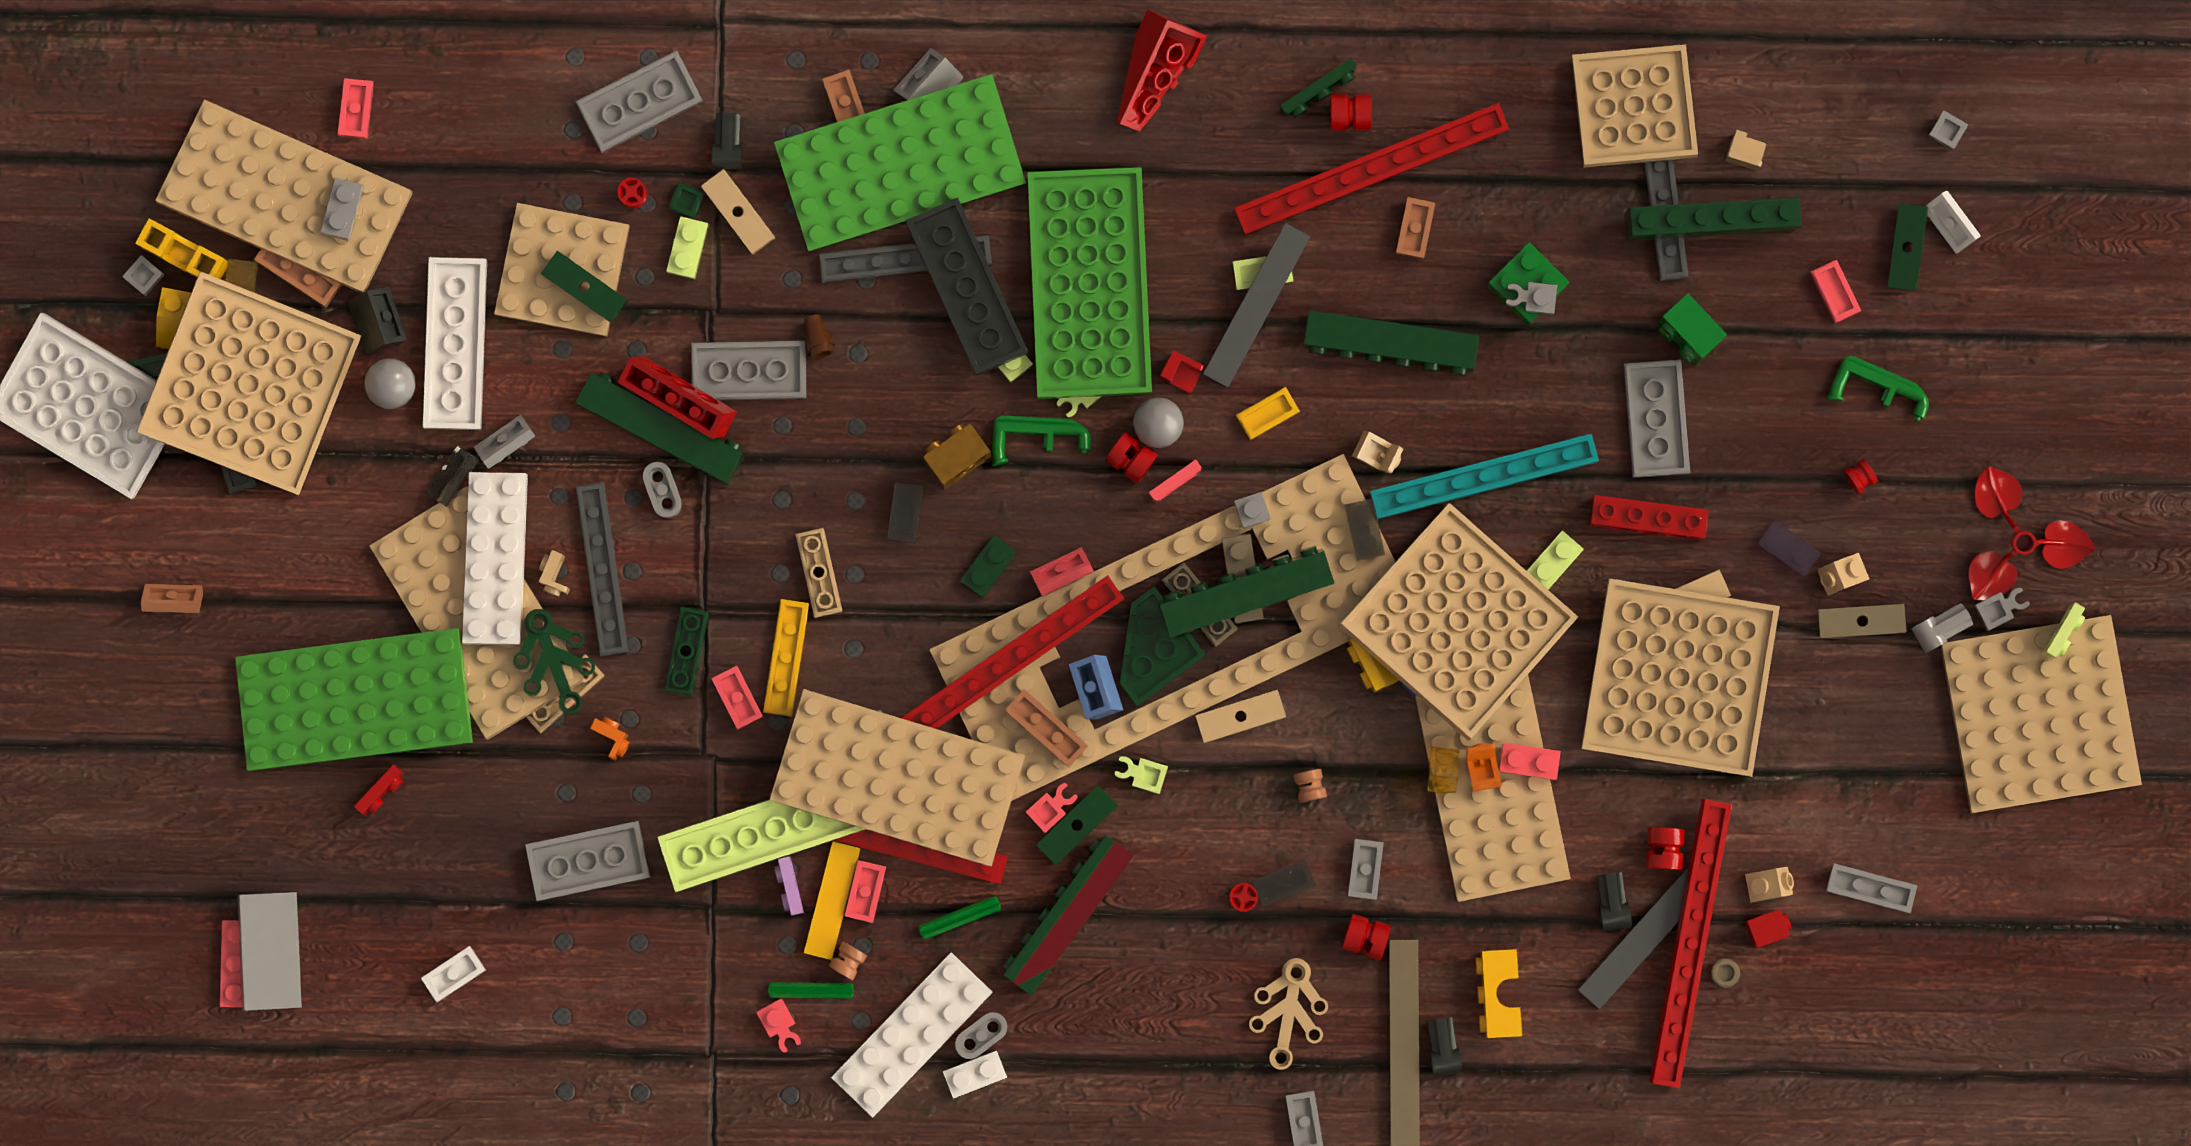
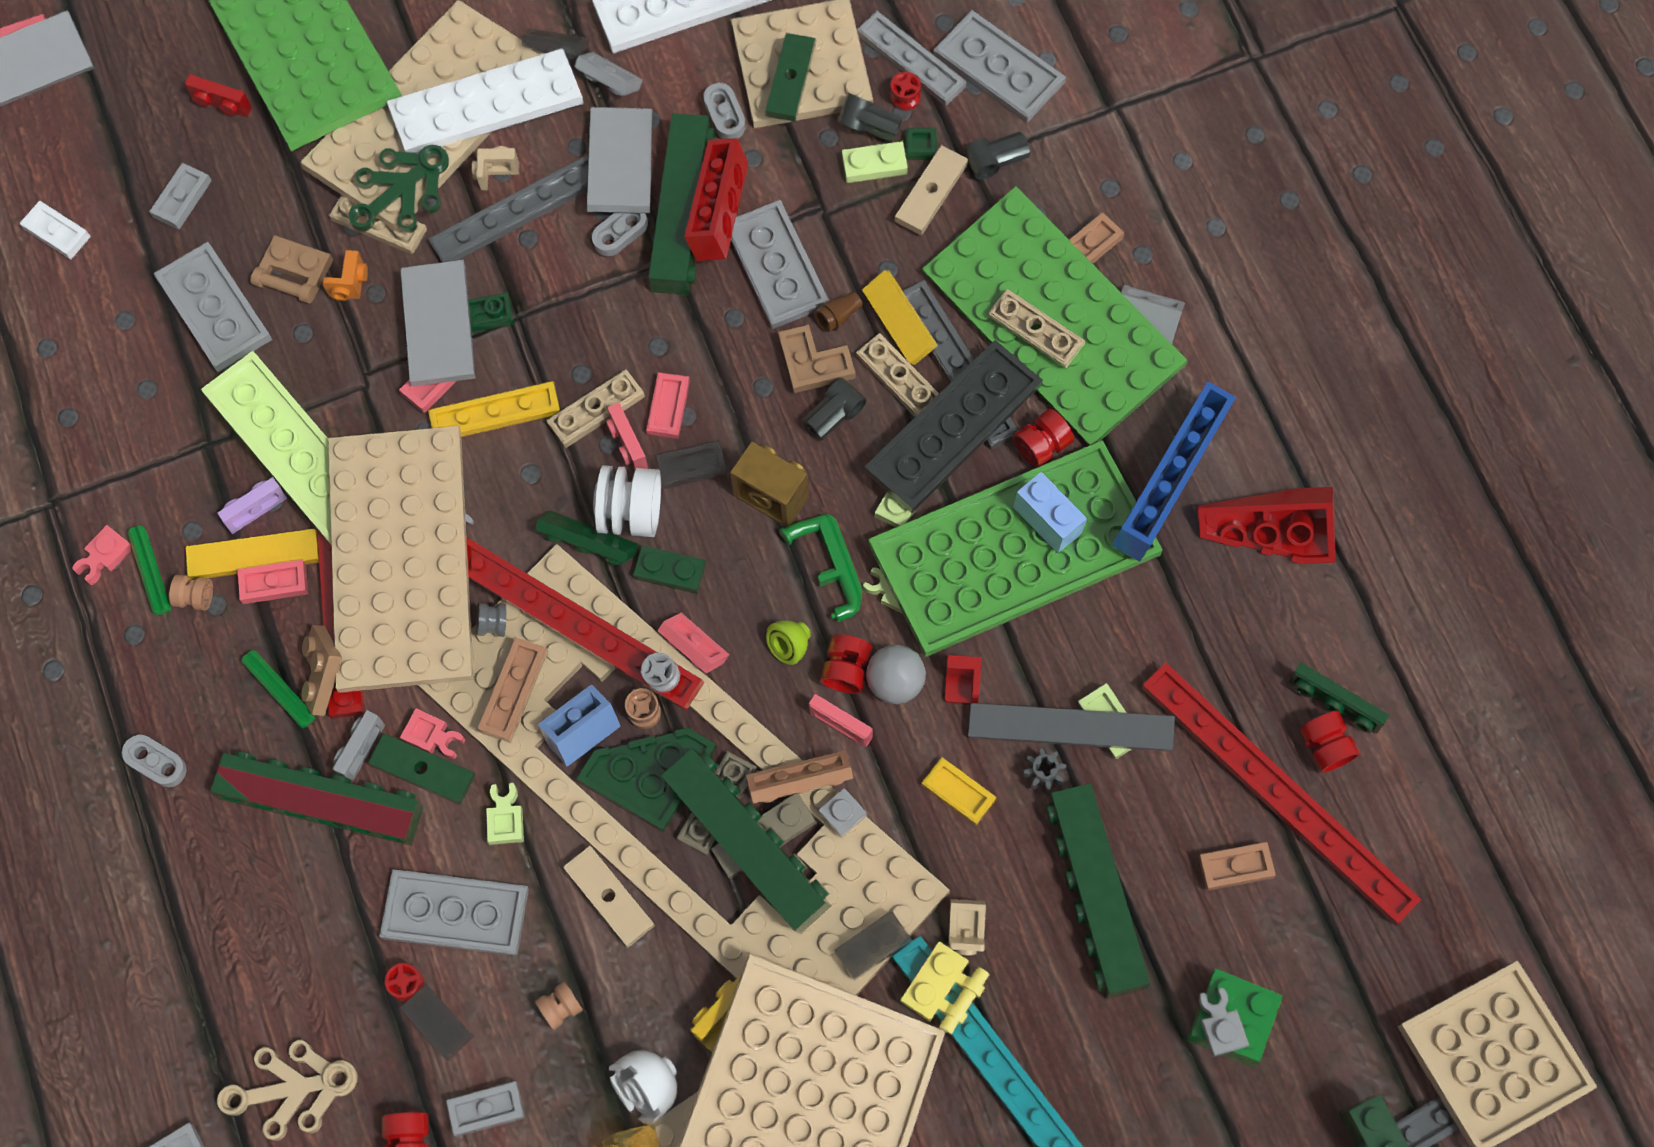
camera: 70 degrees right, 15 degrees down
(466, 855) = (180, 196): none -> light grey plate
(572, 776) = (294, 261): none -> medium nougat plate
(585, 356) = (726, 113): none -> light grey plate
(596, 464) = (619, 160): none -> light grey tile
(598, 173) = (911, 57): none -> light grey tile
(642, 239) = (863, 115): none -> pearl dark grey piece
(691, 674) = (437, 323): none -> light grey tile
(841, 512) = (668, 405): none -> coral tile
(845, 289) = (899, 317): none -> yellow tile
(848, 558) = (619, 426): none -> coral plate
(860, 382) = (812, 368): none -> medium nougat plate
(879, 316) = (887, 362): none -> tan tile
(904, 373) = (839, 403): none -> pearl dark grey piece
(912, 1034) = (134, 691): white plate -> none
(922, 576) = (627, 501): none -> white wheel
(927, 174) = (1052, 337): none -> tan tile
(935, 622) = (585, 538): none -> dark green tile
(962, 870) = (324, 665): none -> medium nougat plate
(974, 1074) = (110, 773): white plate -> none
(980, 724) = (491, 619): none -> dark grey wheel
(1006, 219) = (1047, 435): none -> red wheel
(1029, 860) = (363, 737): none -> light grey plate
(1078, 244) = (1049, 512): none -> light blue brick
(1083, 129) = (1173, 471): none -> blue brick
(1087, 605) = (655, 666): none -> light grey wheel
(1092, 495) = (788, 640): none -> lime brick
(1100, 632) = (638, 703): none -> nougat wheel
(1202, 840) = (454, 912): none -> light grey tile
(1211, 531) = (799, 777): none -> nougat plate
(1288, 337) = (1051, 765): none -> dark grey gear
(1396, 741) = (645, 1082): none -> white cylinder
(1410, 493) = (935, 982): none -> light yellow plate

